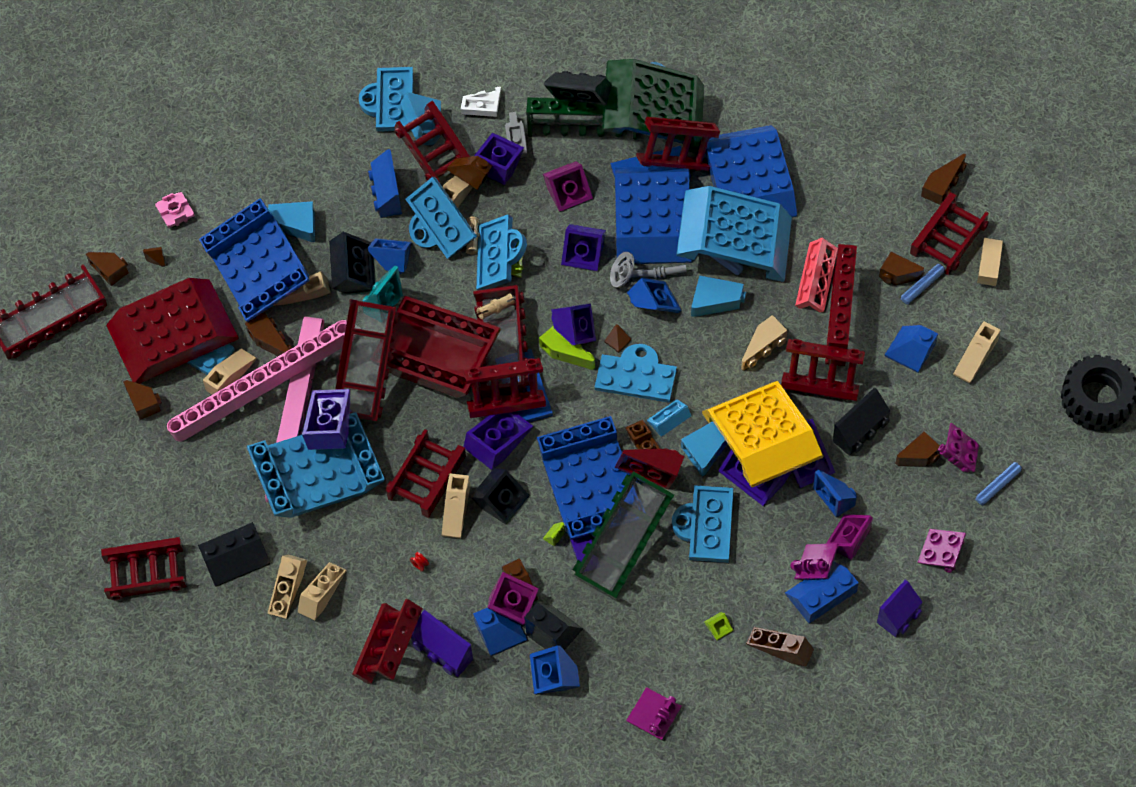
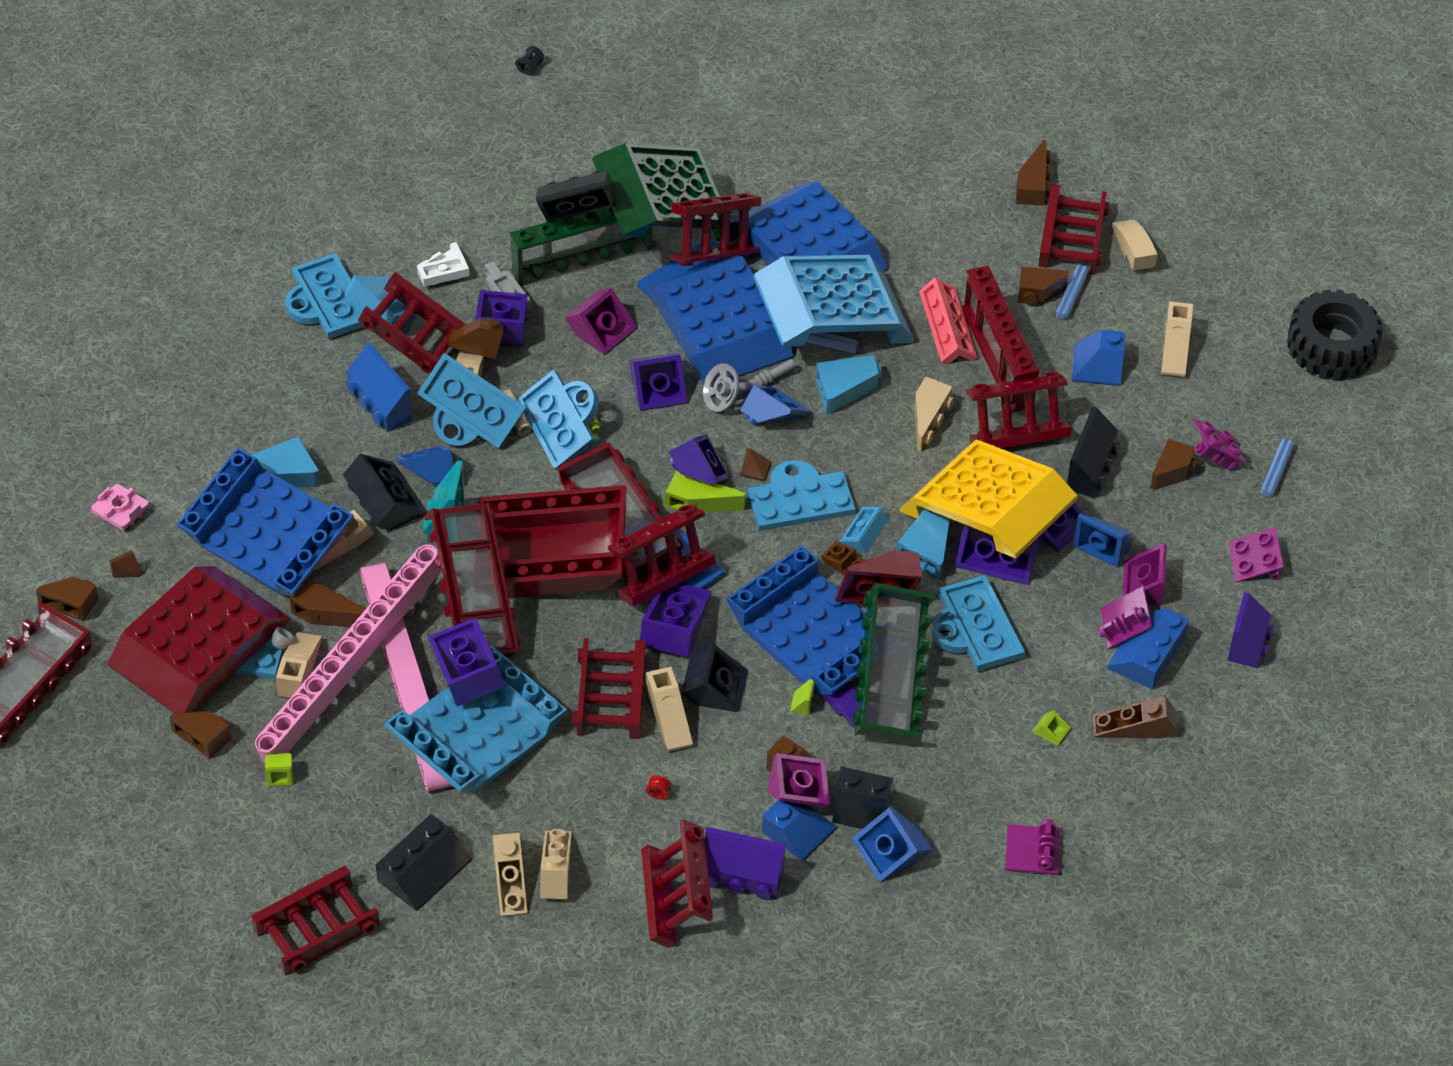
camera: 30 degrees left, 10 degrees down
(176, 447) = (279, 769): none -> lime slope
(225, 350) = (282, 638): none -> light grey hinge
(495, 306) = (596, 473): tan pin -> none

